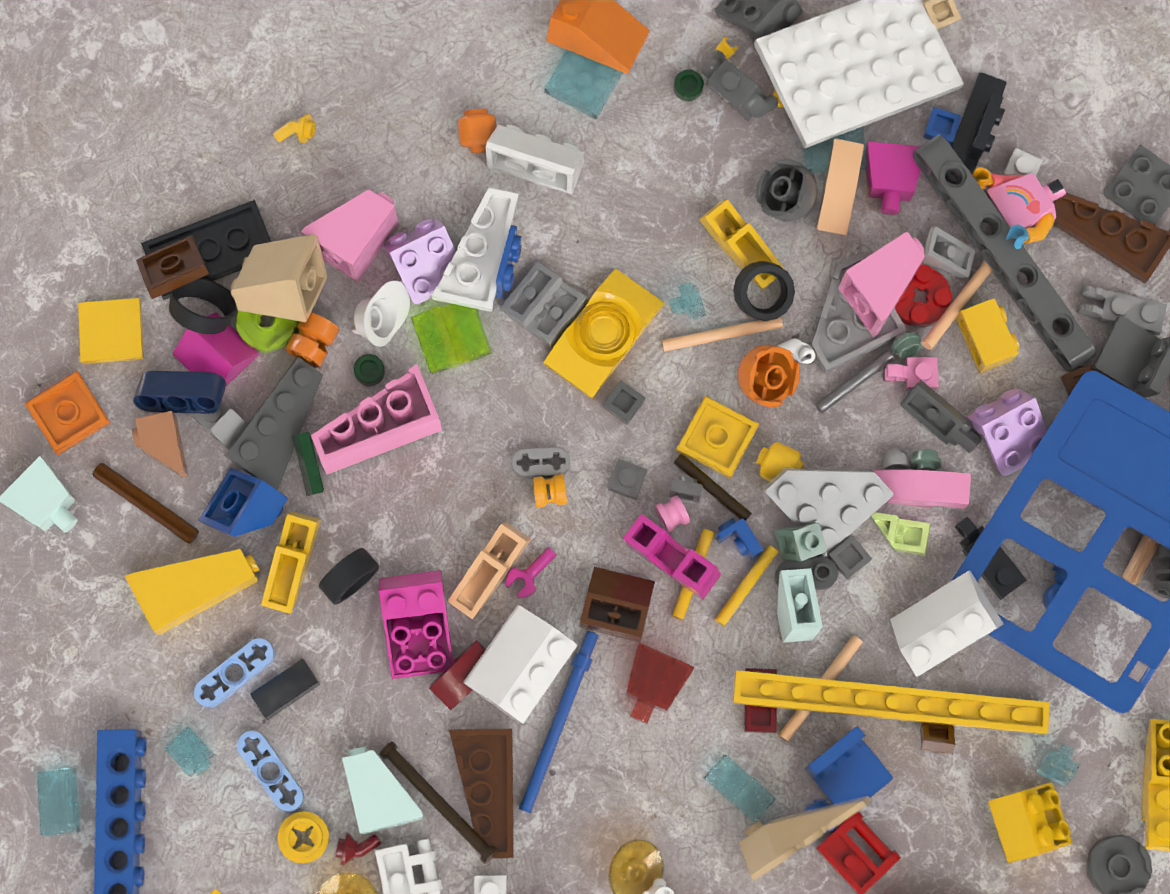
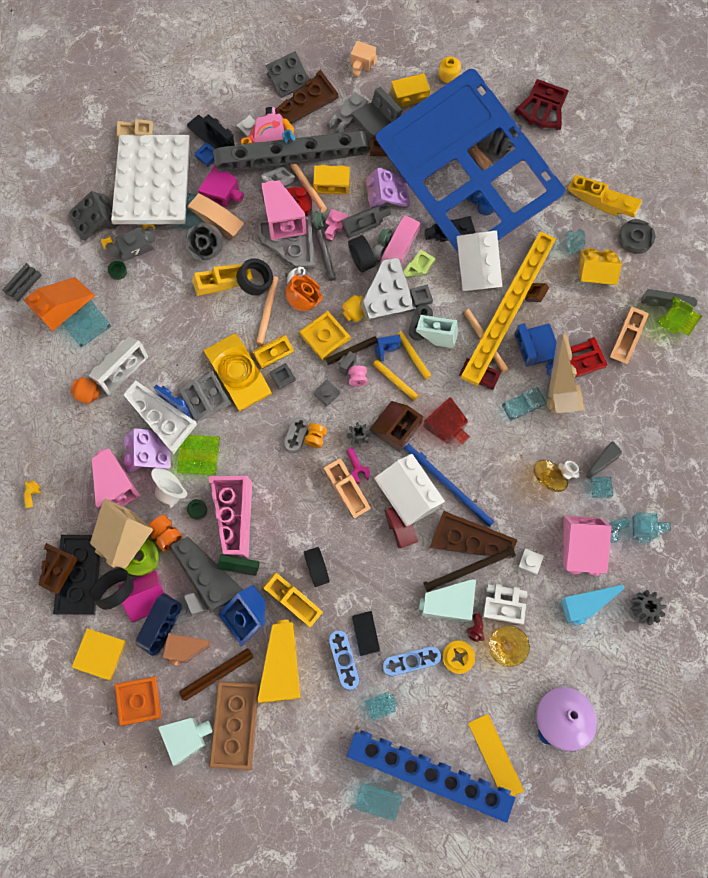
camera: 65 degrees left, 5 degrees down
(85, 559) = (234, 725): none -> medium nougat tile
(172, 267) = (79, 597): reddish brown tile -> none
(201, 216) = (55, 568): none -> reddish brown wing
(416, 624) = (359, 540): dark pink slope -> none
(573, 547) = (359, 439): none -> dark grey gear
(659, 370) = (272, 351): none -> yellow slope
(671, 557) = (375, 389): dark pink arch -> none
(689, 302) = (241, 318): clear light blue tile -> none
(800, 542) = (403, 316): sand green bracket -> none
(875, 435) = (361, 253): none -> black tyre

